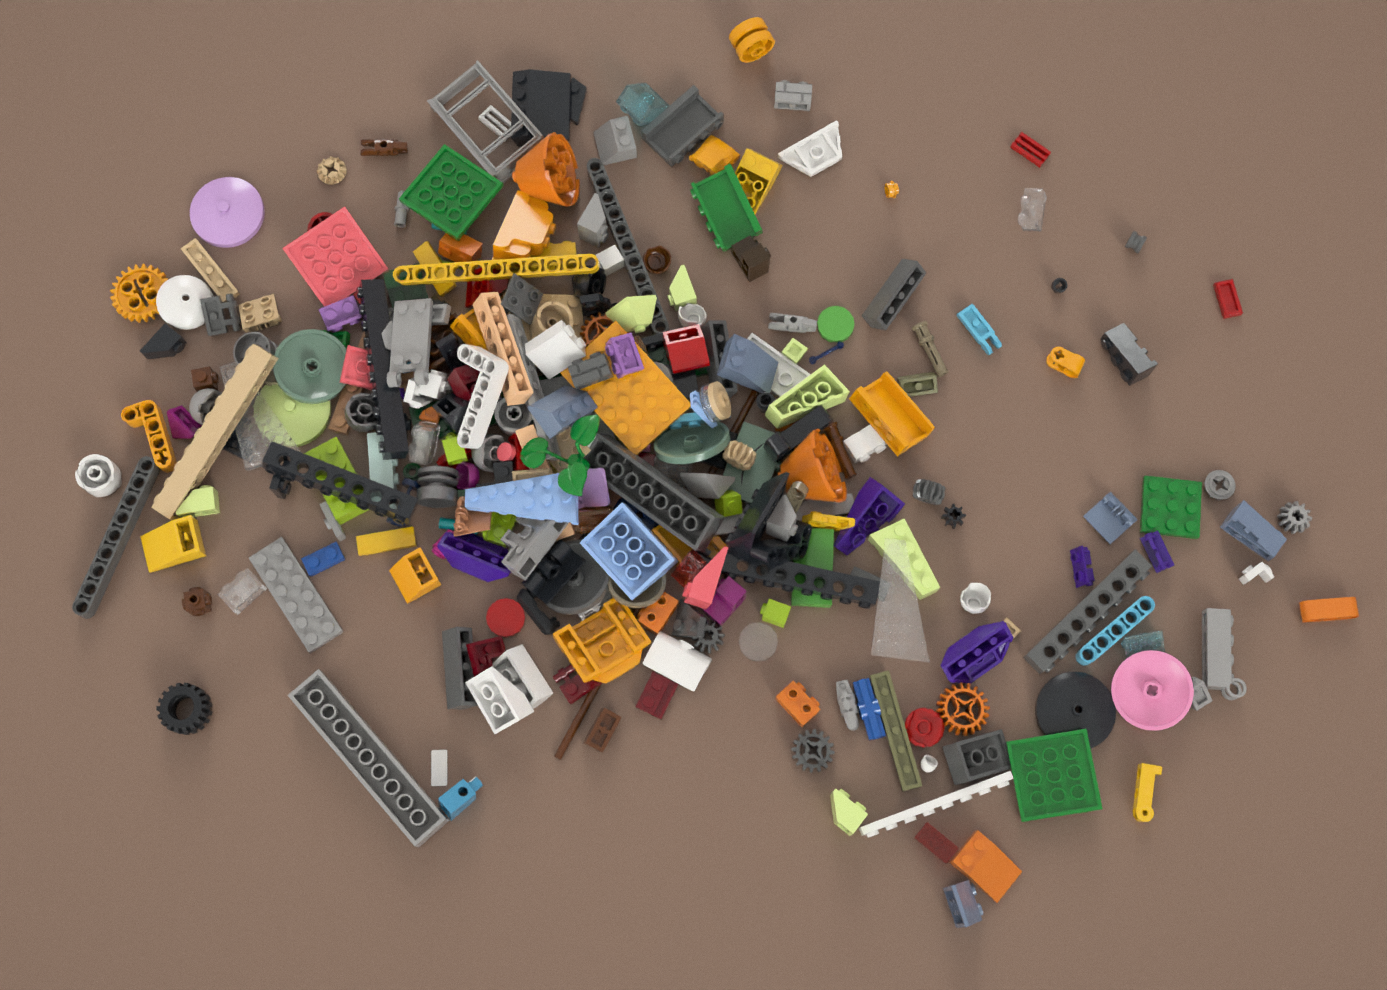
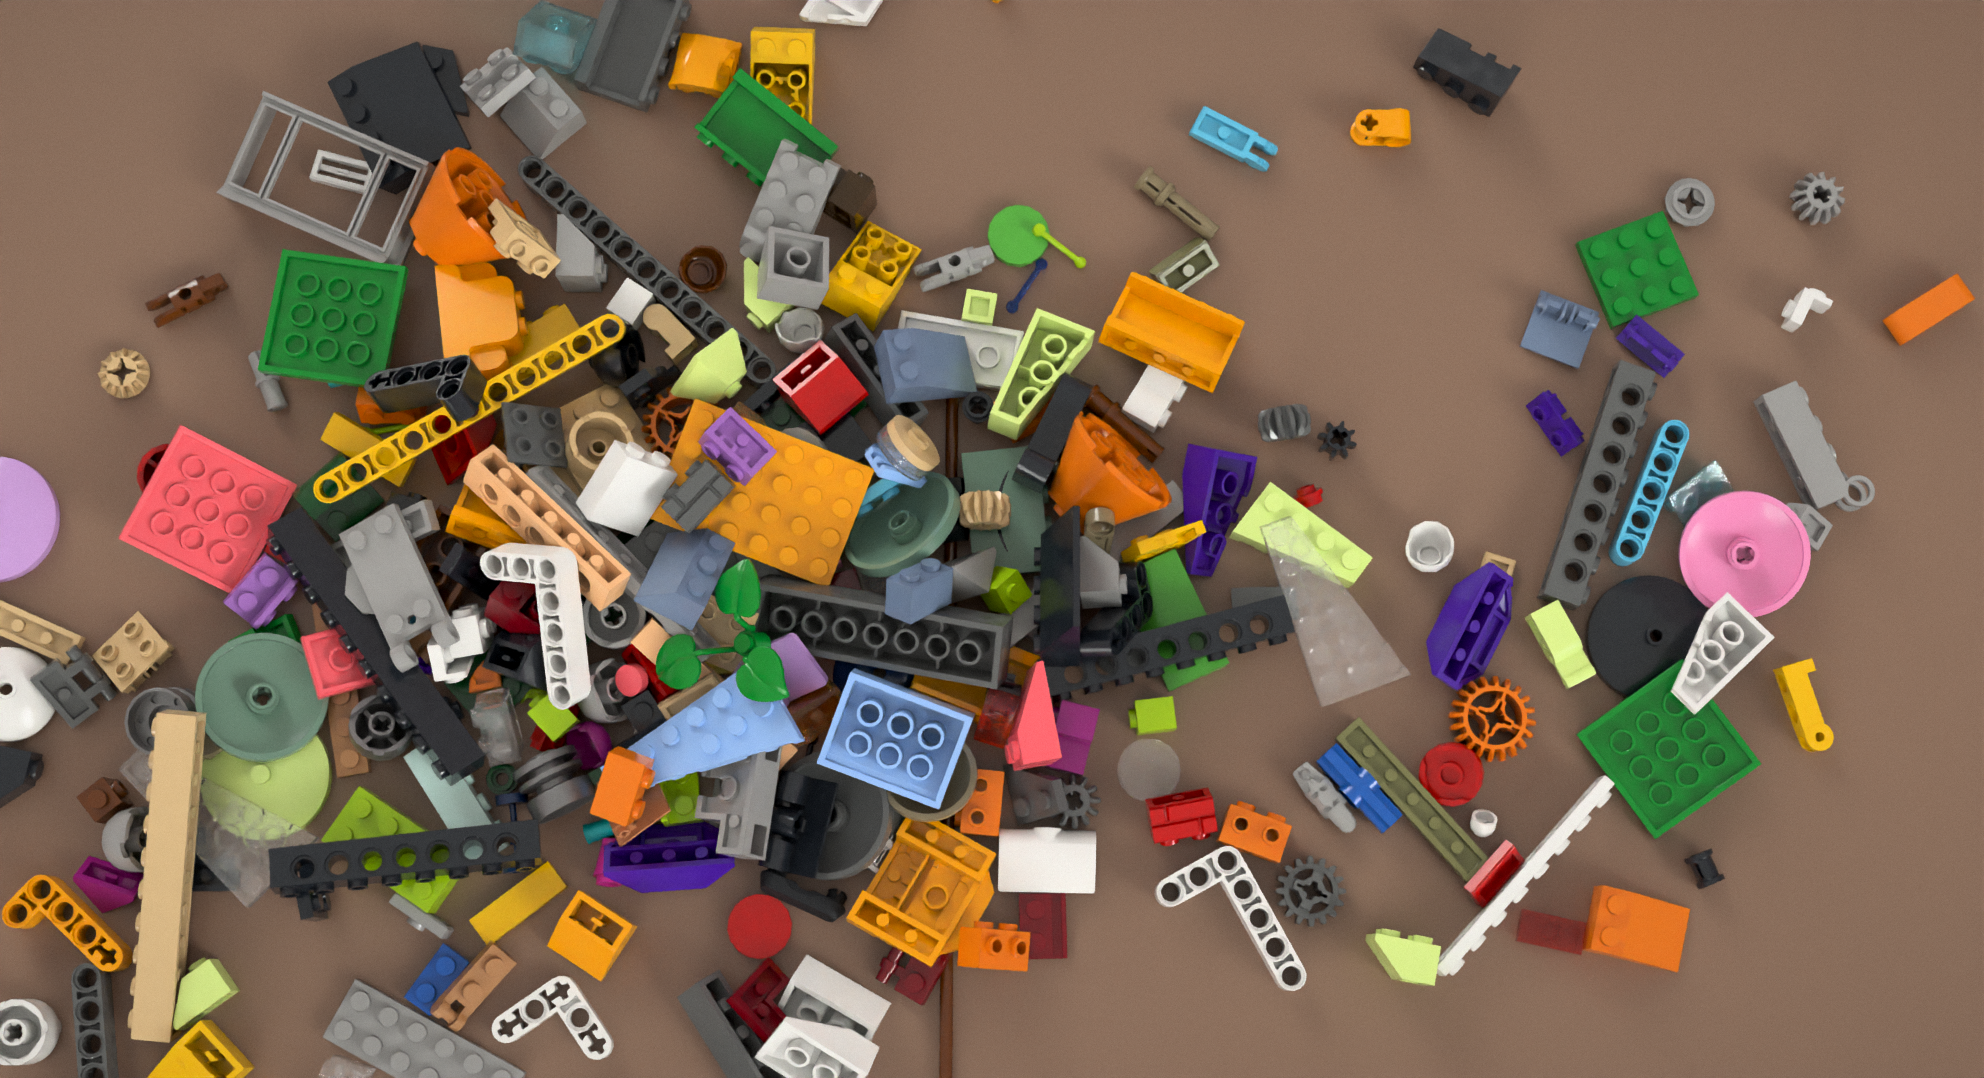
camera: 30 degrees left, 5 degrees up
(340, 571) = (473, 985): none -> medium nougat plate
(381, 607) = (565, 1008): none -> white beam
(470, 502) = (623, 786): none -> orange brick
(492, 249) = (447, 381): none -> black beam
(568, 196) = (521, 241): none -> tan plate
(600, 112) = (496, 81): none -> light grey plate
(602, 730) = (990, 1020): reddish brown hinge -> none
(622, 280) = (663, 323): none -> tan leg
(623, 691) = (993, 948): none -> orange brick
(680, 476) = (919, 590): none -> sand blue brick
(704, 280) = (794, 268): none -> light grey slope
(718, 249) = (789, 198): none -> light grey piece
(744, 305) = (870, 274): none -> yellow slope
(762, 674) = (1181, 816): none -> red brick
(772, 740) = (1243, 908): none -> white beam
(847, 326) = (1040, 230): none -> lime hinge
(894, 294) = (1083, 148): dark grey brick -> none
(920, 794) = (1494, 874): none -> red tile
(922, 538) = (1309, 495): none -> red plate
(963, 904) = (1634, 1002): sand blue slope -> none
(977, 757) = (1547, 778): dark grey slope -> none
(1022, 688) = (1560, 643): none -> yellowish green piece
(1041, 853) = (1704, 869): none -> black bush
(1062, 288) = (1321, 18): black hinge -> none
(1110, 735) = (1720, 650): none -> white wedge
(1253, 531) = (1770, 248): sand blue wedge -> none

